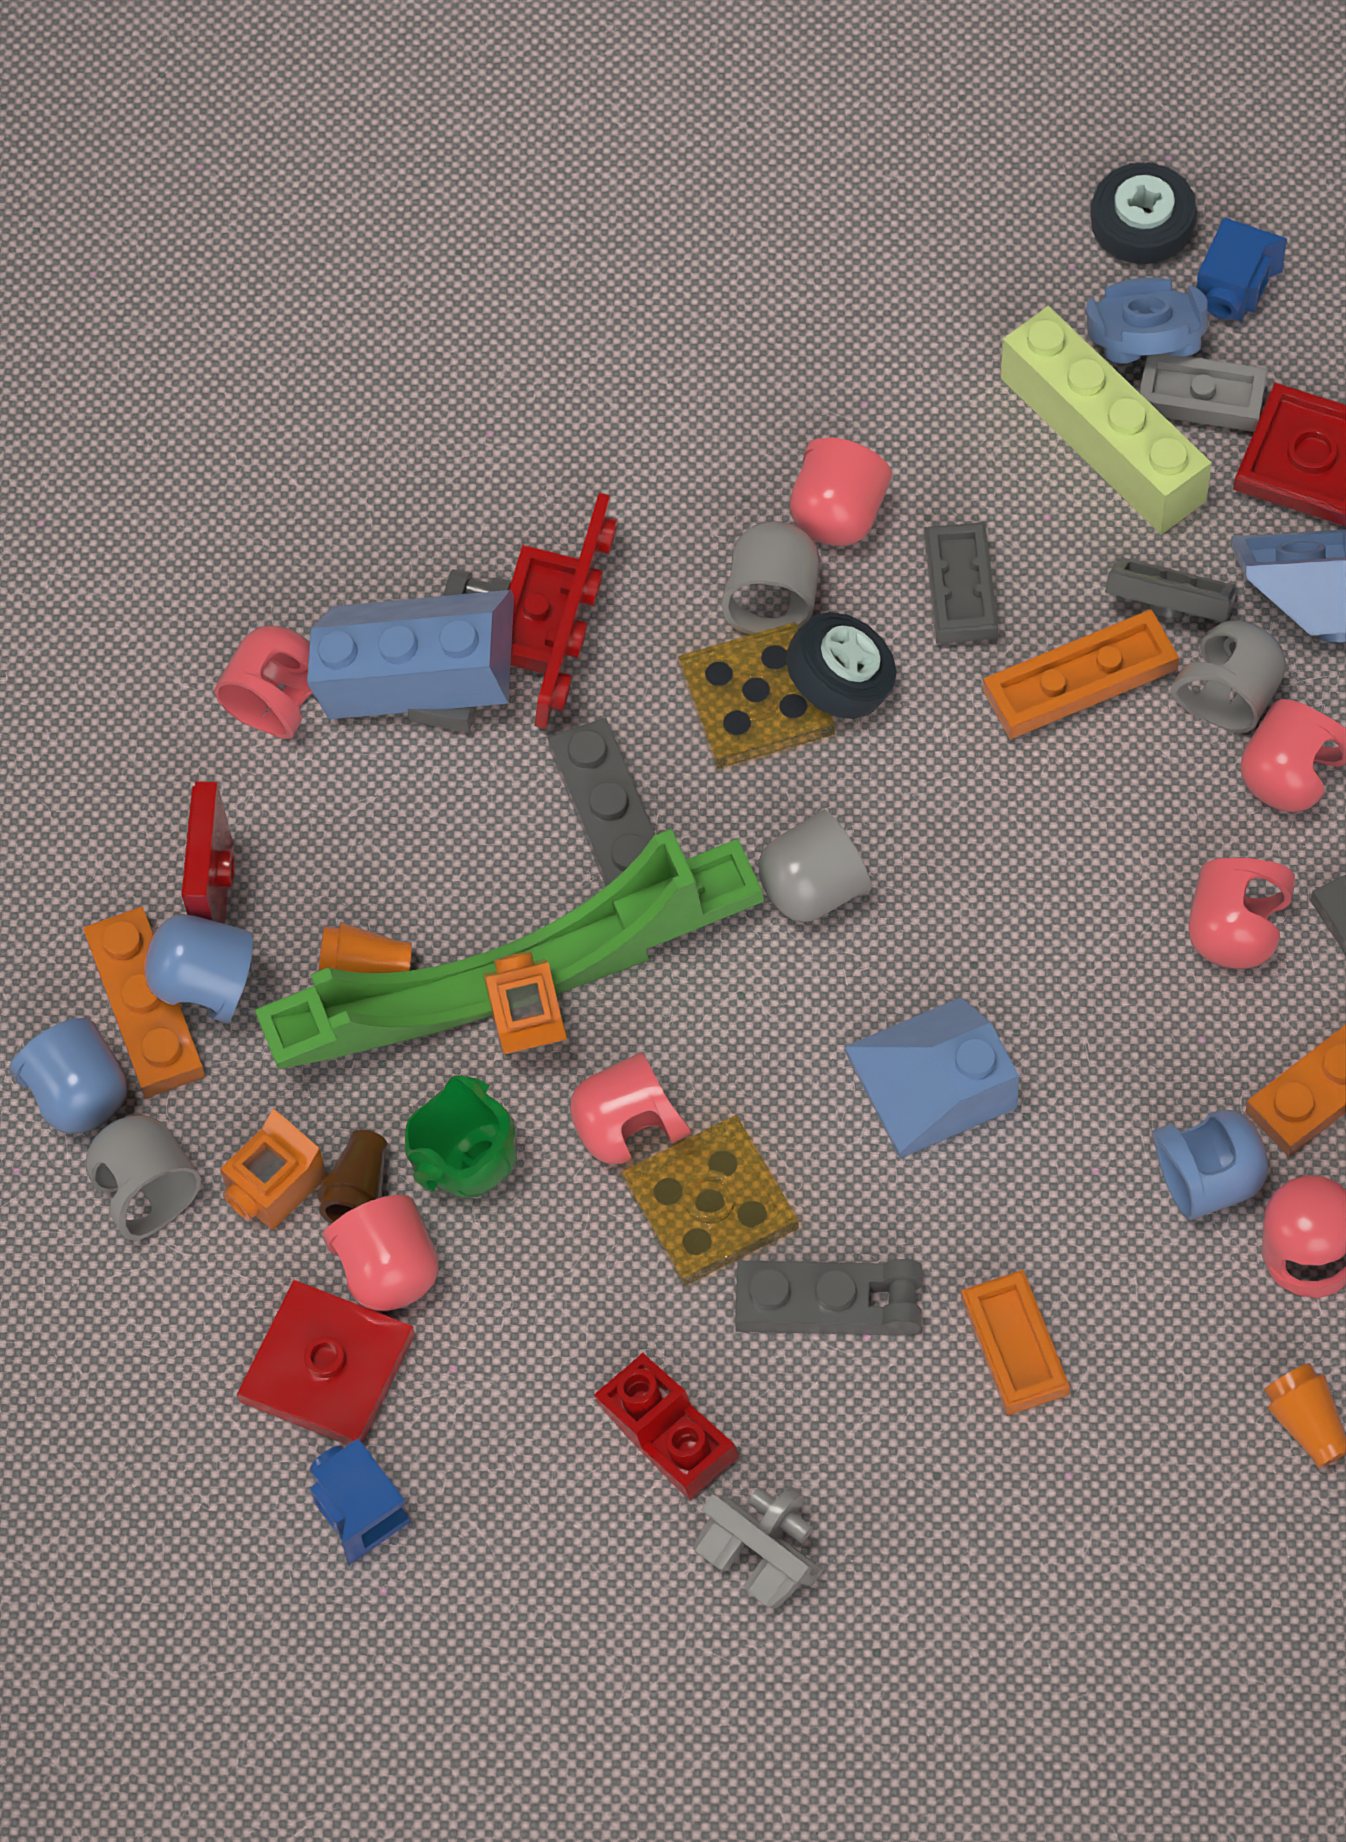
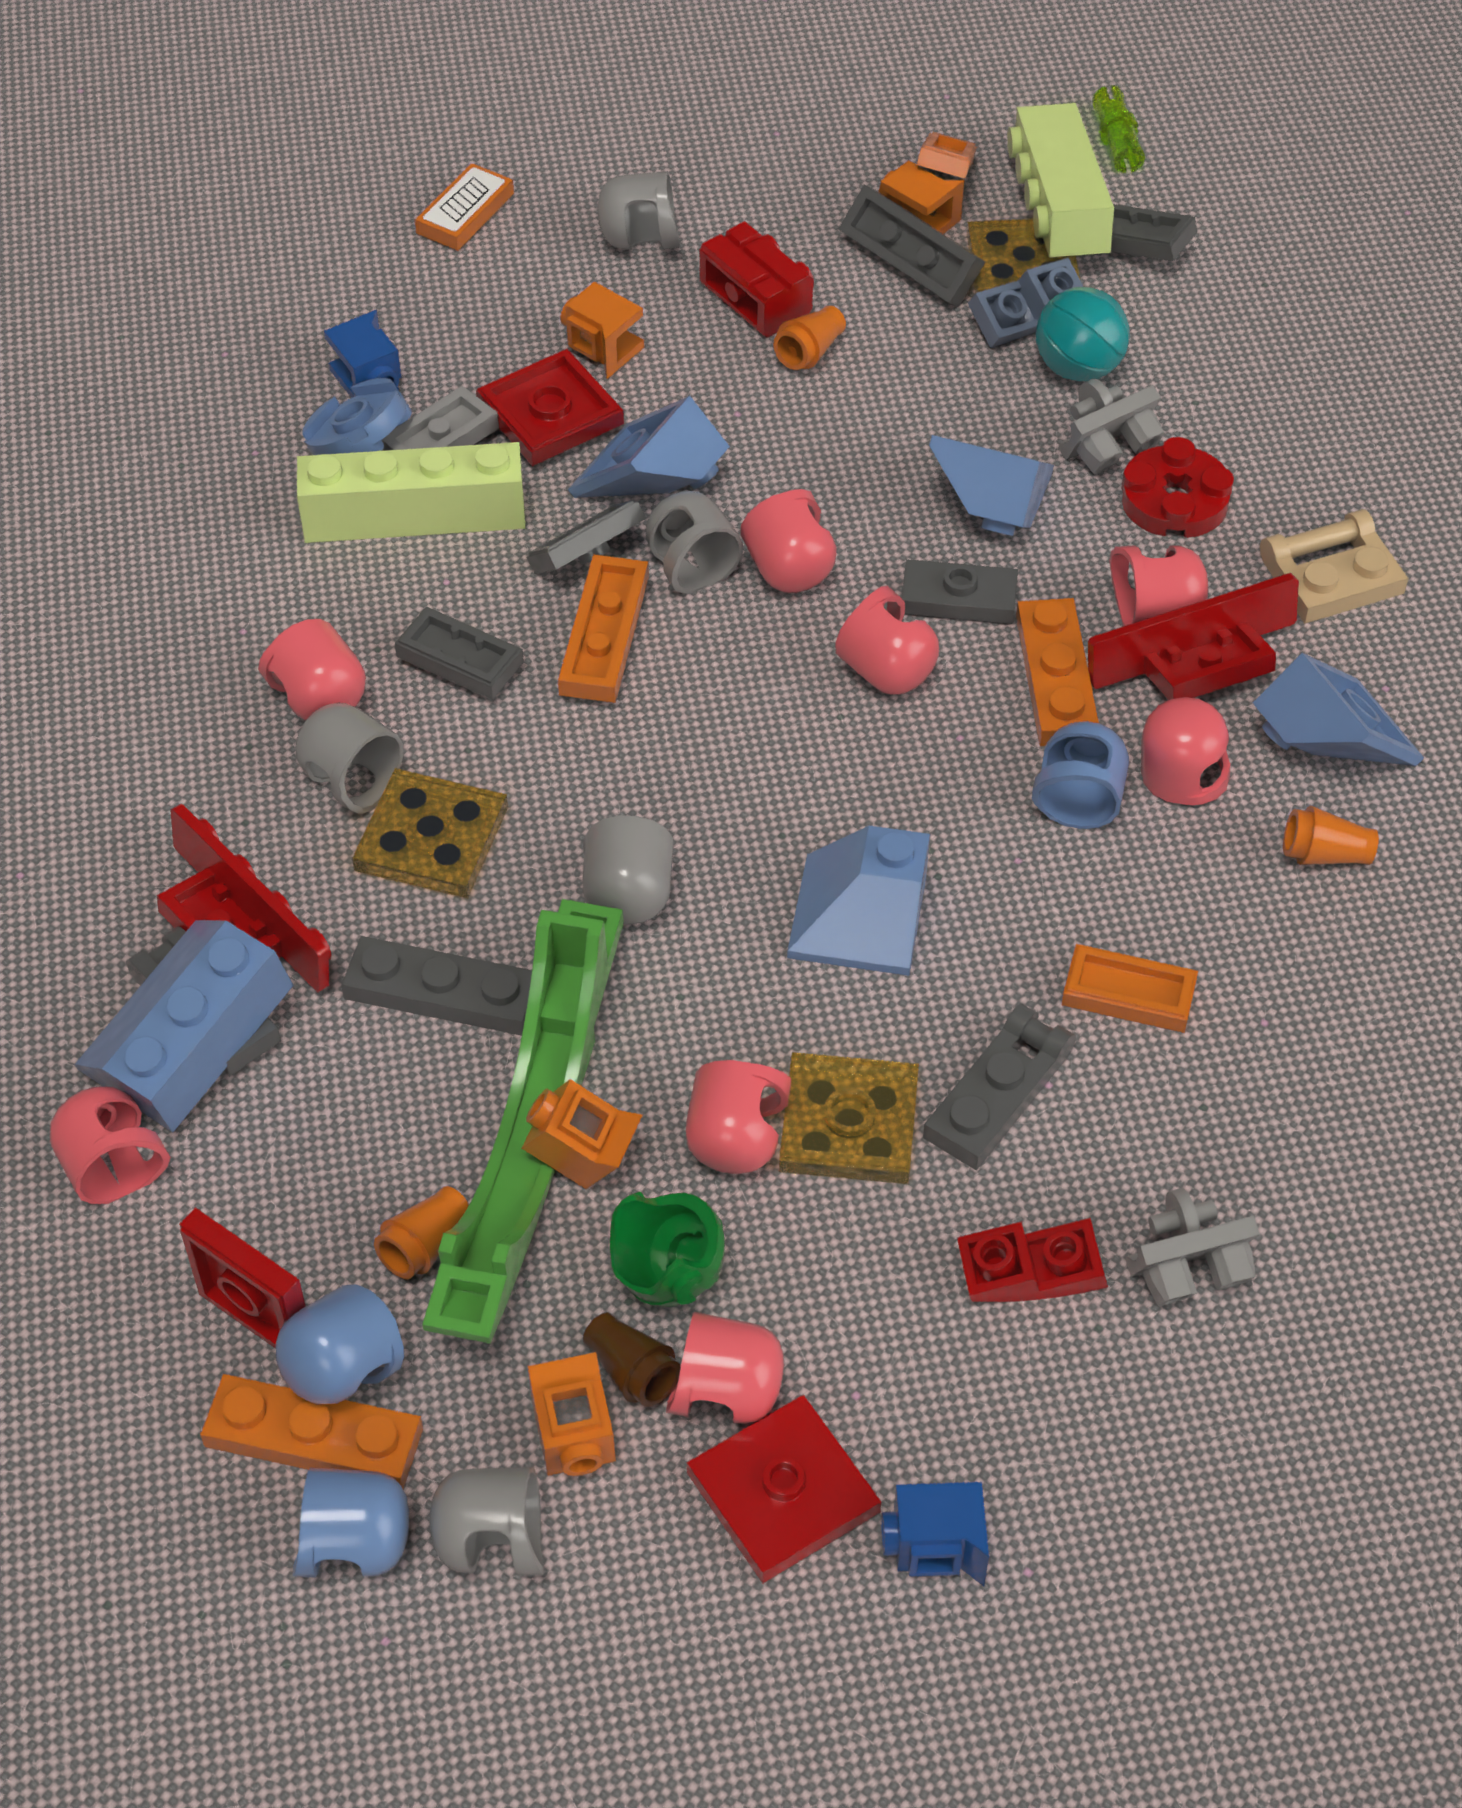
camera: 60 degrees left, 10 degrees down
(841, 665) = (465, 756): black wheel -> none
(1129, 231) = (262, 383): black wheel -> none

